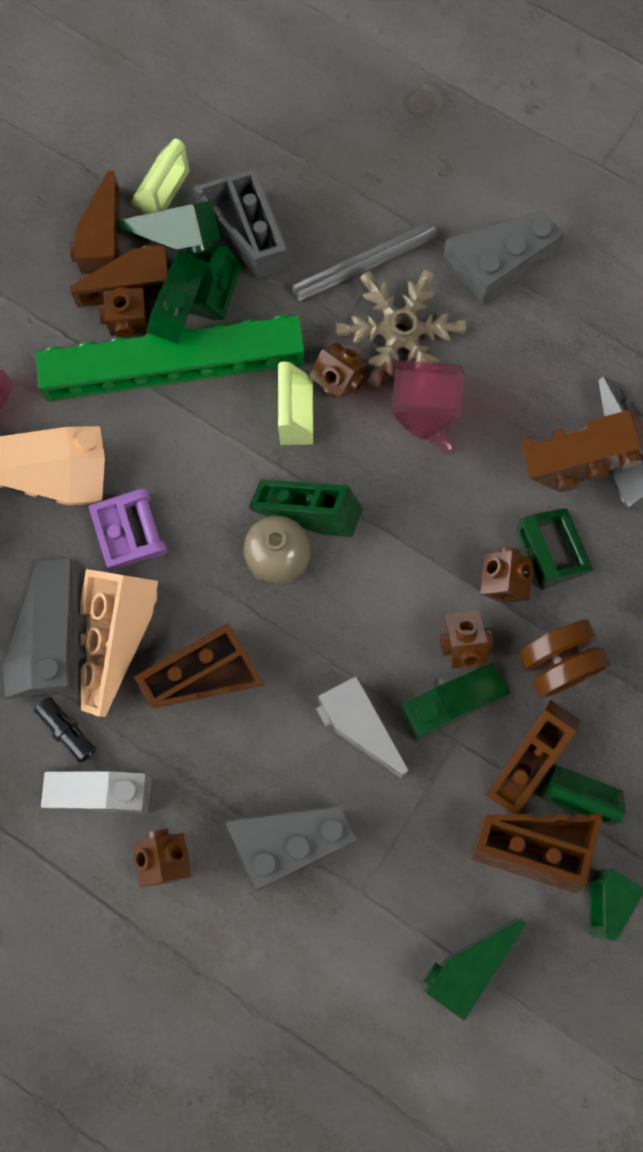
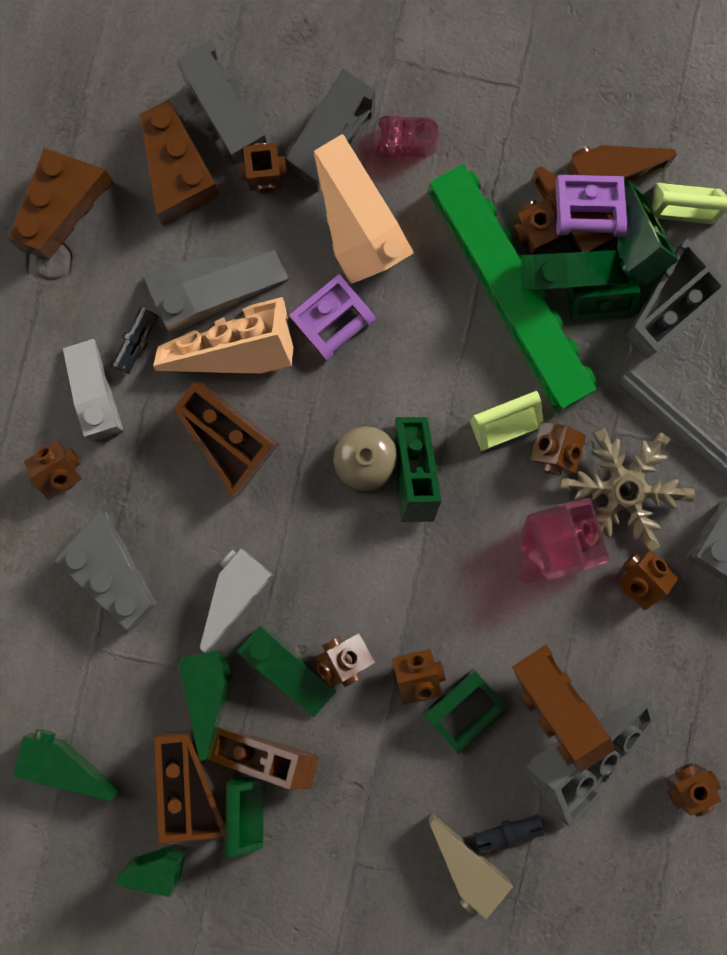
camera: 65 degrees right, 10 degrees up
(118, 250) = (591, 194): none -> medium lavender plate
(445, 786) = (205, 690): none -> dark green slope
(490, 339) = (646, 579): none -> reddish brown brick
(561, 653) = (352, 760): reddish brown wheel -> none

